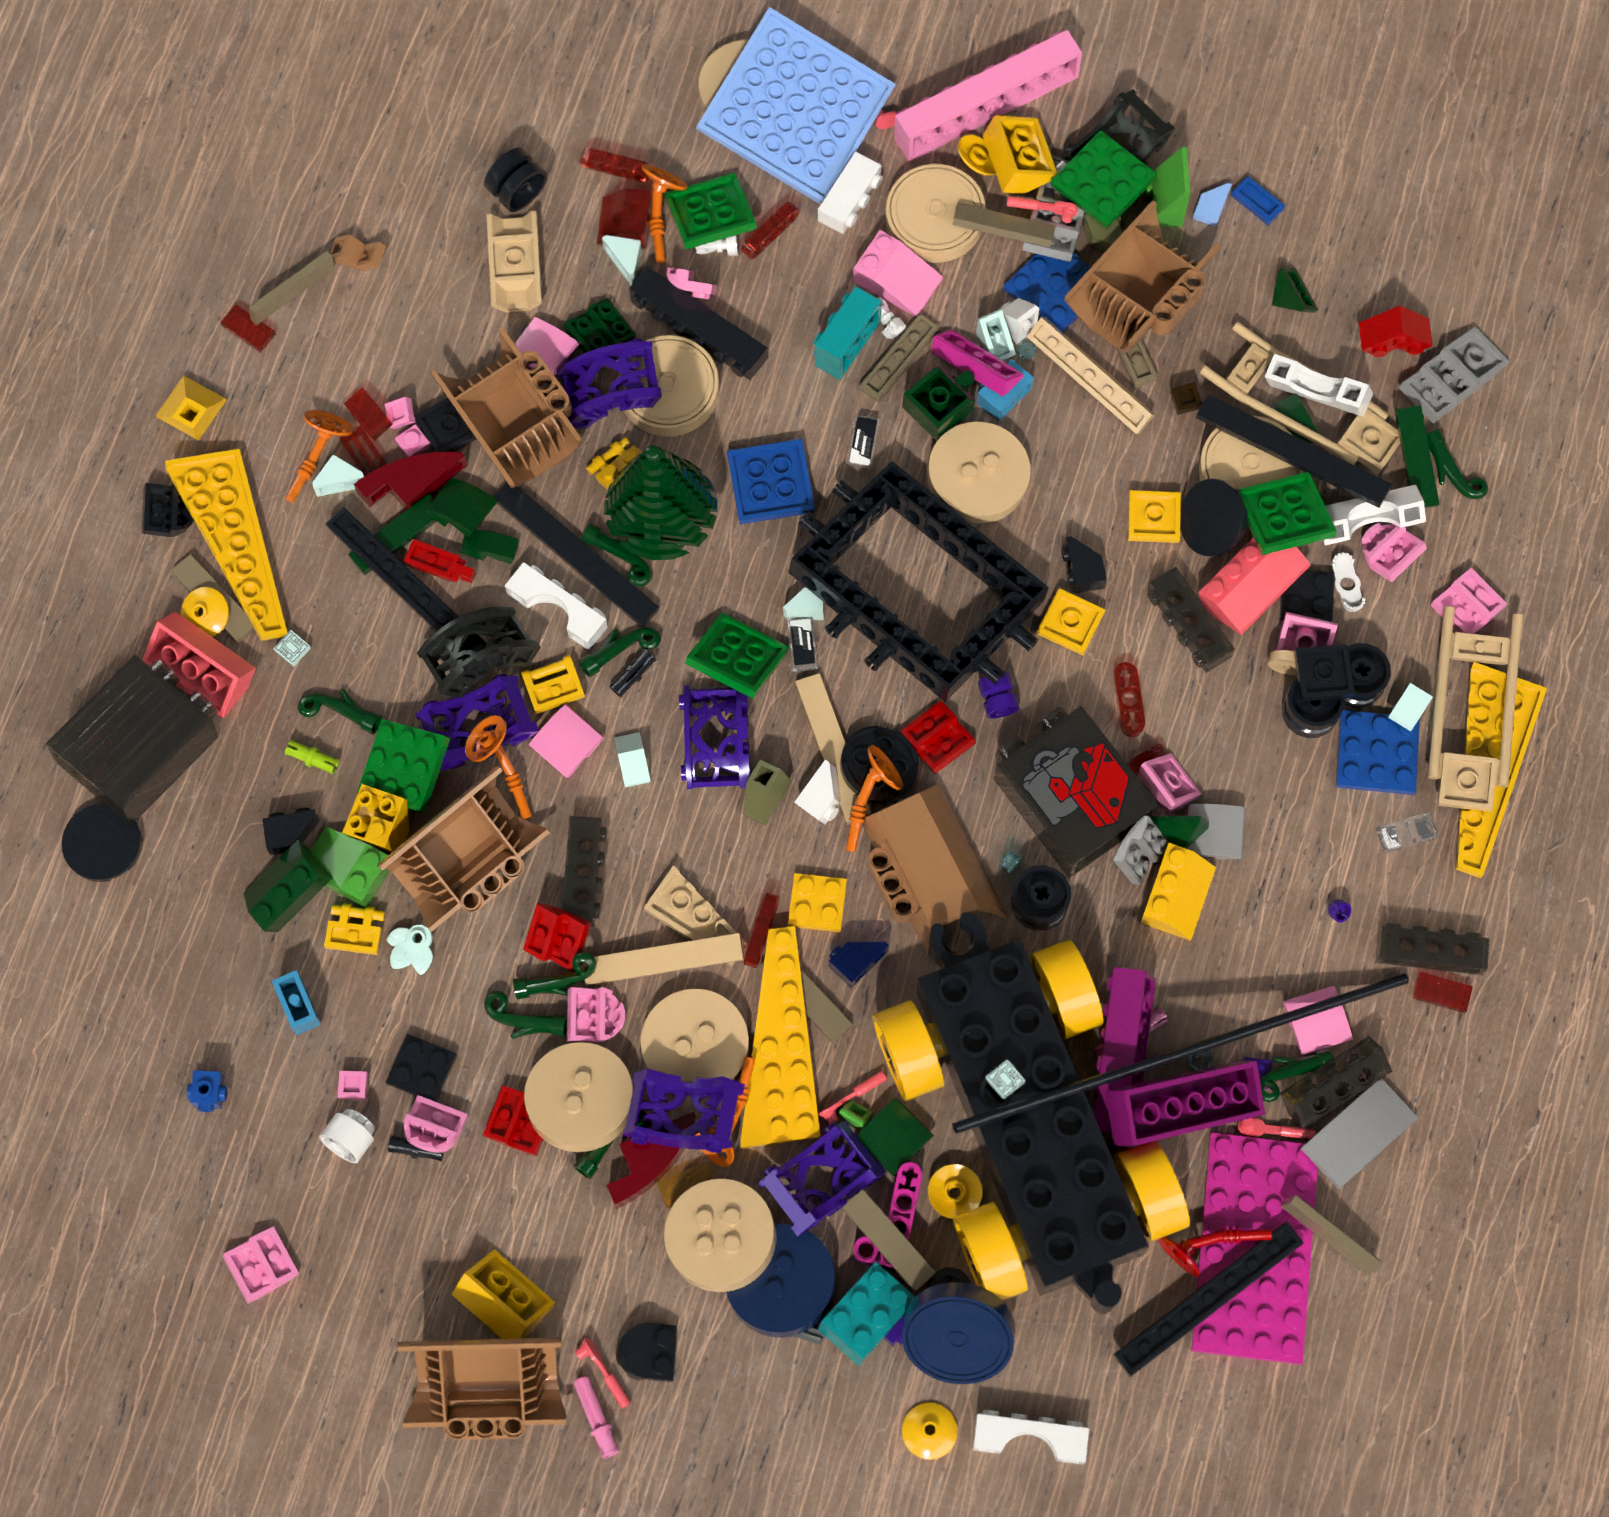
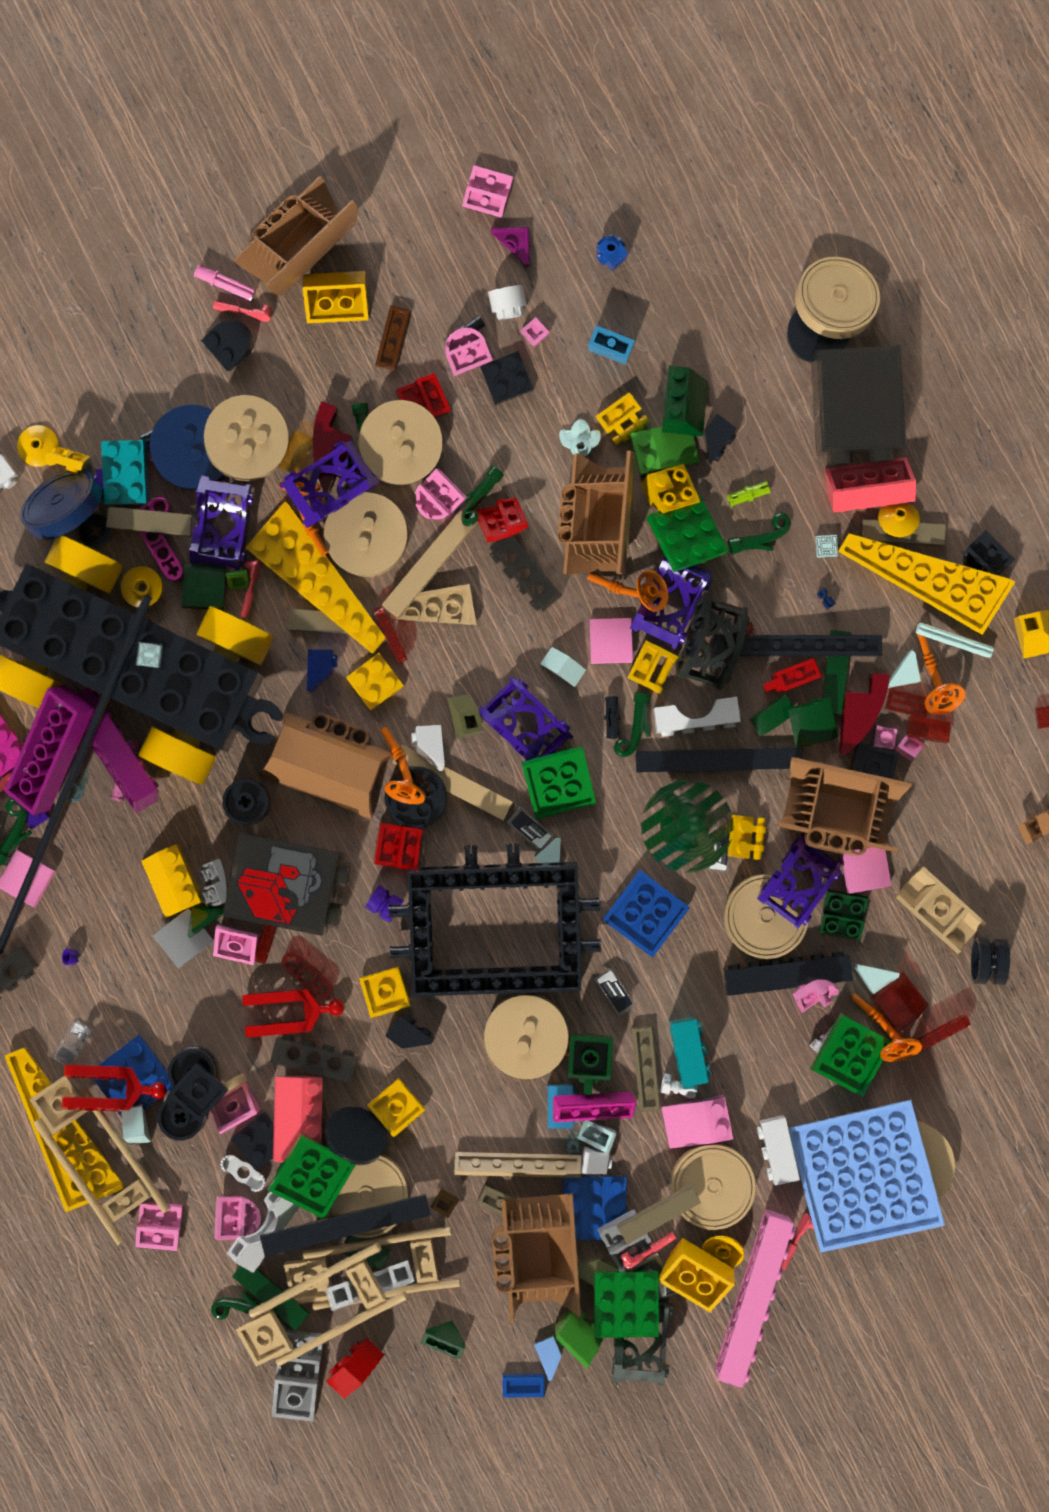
camera: 135 degrees right, 15 degrees up
(52, 851) = (837, 297): none -> tan brick
(267, 465) = (954, 640): none -> light aqua axle
(282, 1191) = (515, 240): none -> magenta tile
(341, 598) = (827, 601): none -> dark blue piece
(488, 1208) = (392, 338): none -> reddish brown tile
(527, 1023) = (471, 458): dark green plant -> none
(595, 536) = (716, 780): dark green plant -> none
(770, 230) = (803, 1078): clear red beam -> none
(907, 1371) = (72, 460): none -> yellow plate
(1011, 861) = (285, 809): clear light blue bush -> none
(1189, 668) = (311, 1007): none -> red piece
(1385, 734) = (133, 1090): none -> red piece
(1452, 423) = (267, 1338): none -> tan plate

